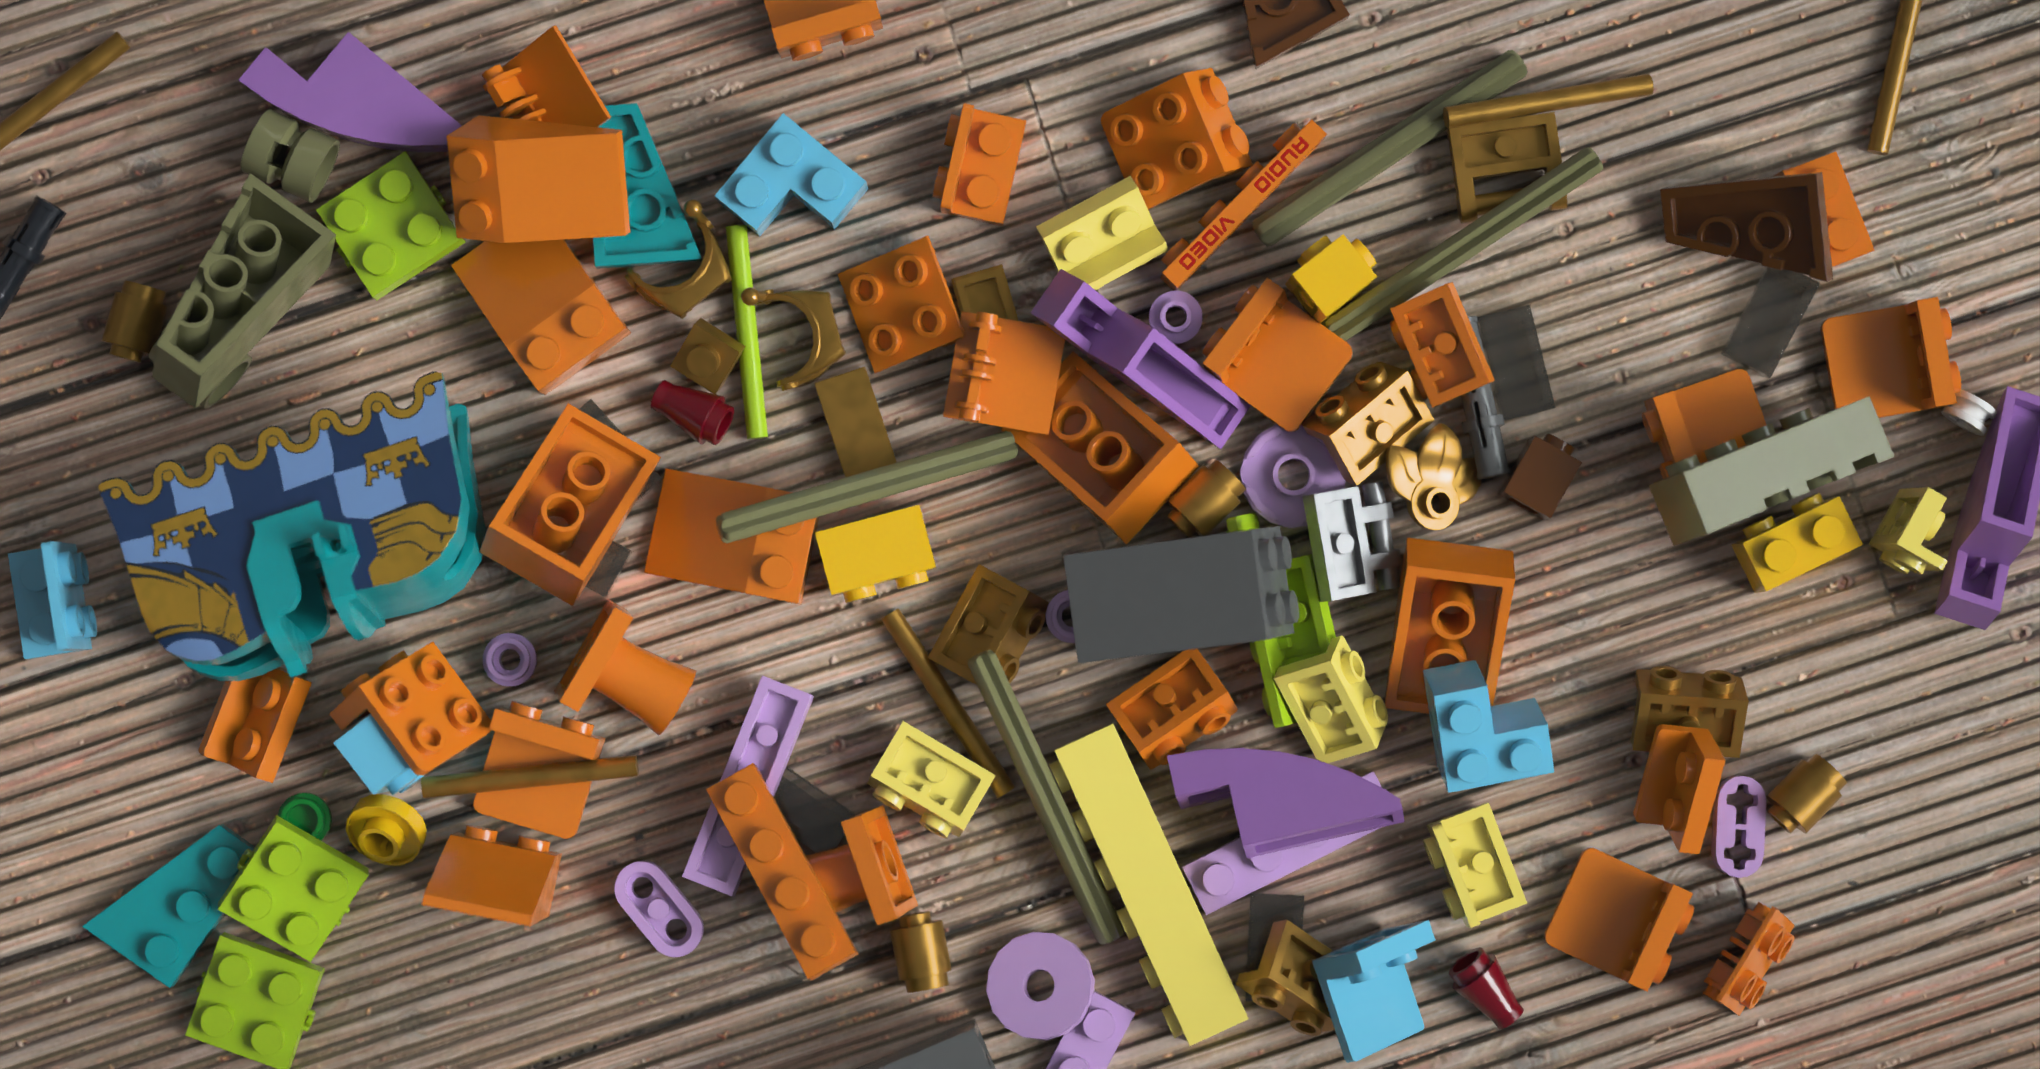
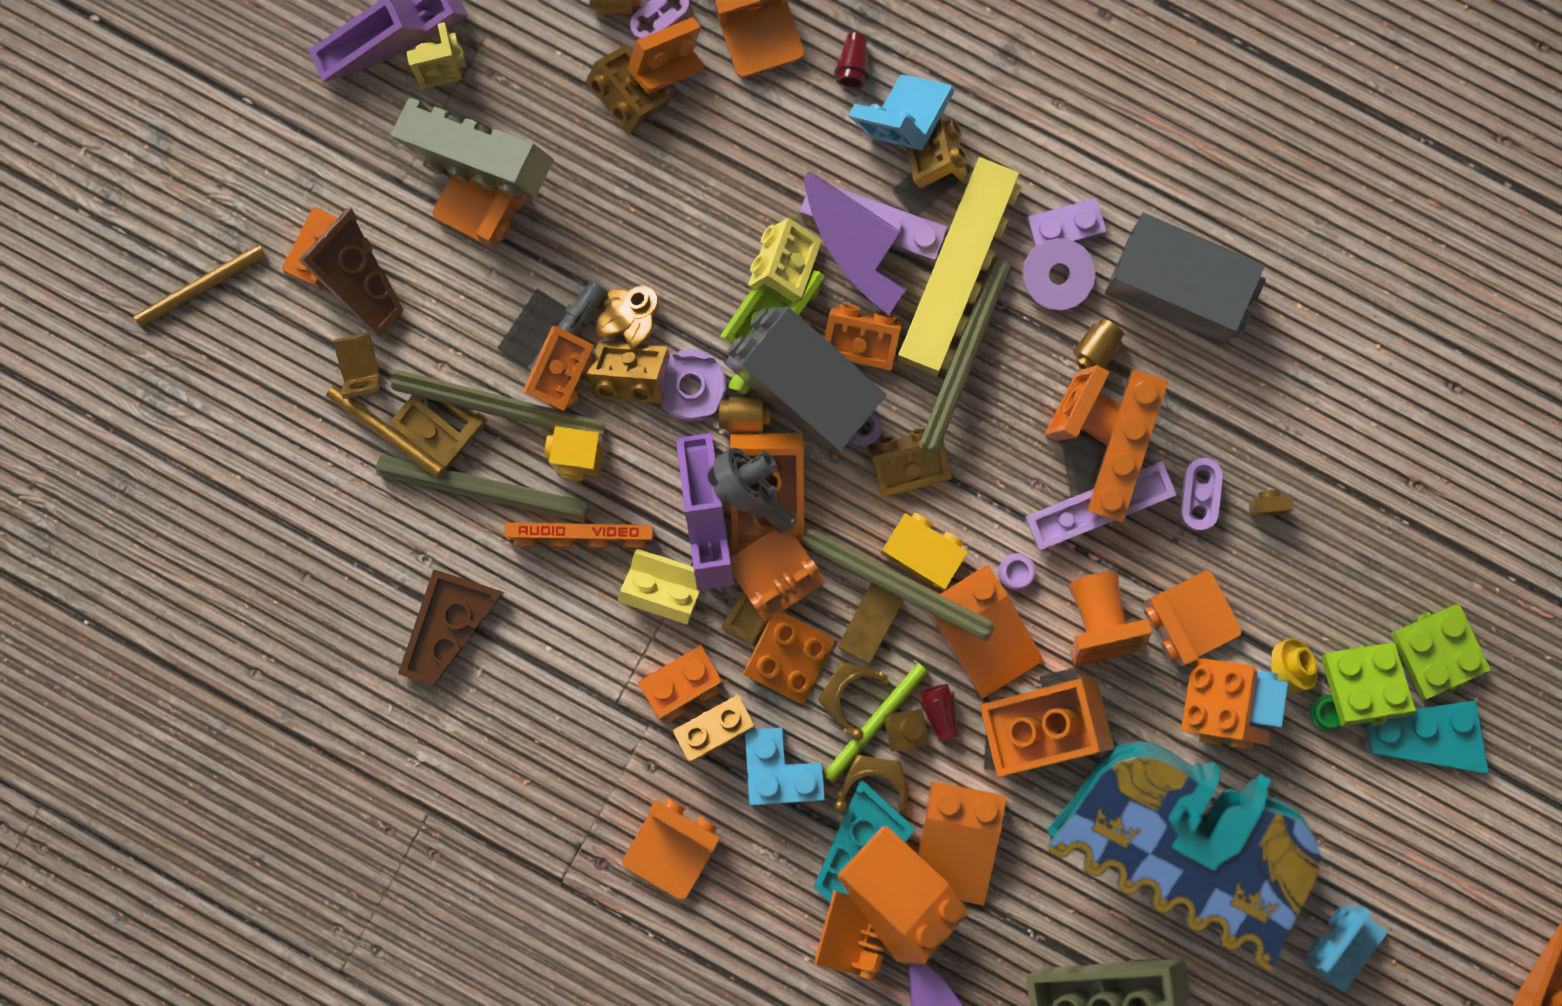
camera: 125 degrees left, 5 degrees down
(255, 722) = (1307, 781): orange bracket -> none
(390, 225) = (993, 955): lime plate -> none
(493, 654) = (1161, 680): lavender plate -> none
(494, 877) = (1268, 585): orange slope -> none
(529, 776) = (1198, 618): pearl gold bar -> none
(579, 972) = (1270, 503): none -> pearl gold plate
(764, 633) = (1016, 572): none -> lavender tile
(897, 151) = (714, 729): none -> bracket
(929, 781) = (1010, 419): light yellow bracket -> none
(946, 700) = (964, 449): pearl gold bar -> none
(1117, 418) = (743, 484): none -> dark grey pin
(1177, 136) = (575, 598): orange bracket -> none
(1188, 304) = (672, 525): lavender plate -> none
(1276, 356) = (640, 445): orange bracket -> none
(1341, 541) = (704, 326): flat silver plate -> none
(1448, 613) = (694, 238): orange slope -> none
(1474, 864) = (798, 121): light yellow bracket -> none
(1480, 741) = (735, 171): medium azure brick -> none
(1541, 475) = (577, 263): reddish brown brick -> none
(1648, 135) = (357, 365): none -> pearl gold bracket
(1770, 320) = (396, 225): clear smoke tile -> none
(1796, 544) = (496, 108): yellow brick -> none
(1892, 357) = (360, 148): orange bracket -> none
(1969, 412) = (352, 88): white bush -> none

